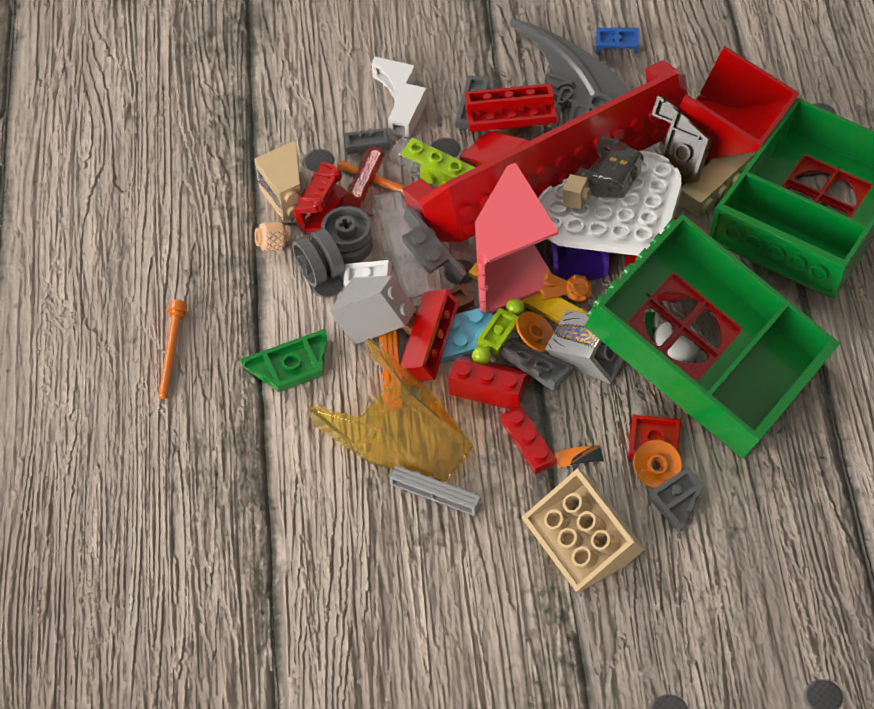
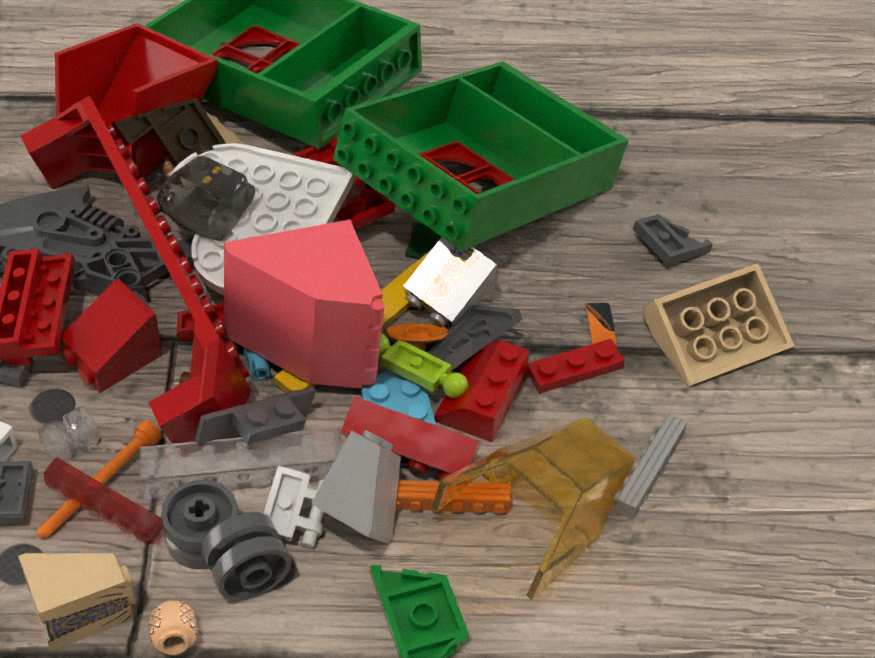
camera: 90 degrees left, 5 degrees down
(319, 197) = (132, 542): red piece -> none
(435, 165) = (115, 393): lime bracket -> none
(463, 296) = (337, 408): reddish brown plate -> none
(576, 192) = (229, 229): tan plate -> none
(653, 428) = (583, 252): red tile -> none
(663, 455) = (628, 247): orange dish -> none

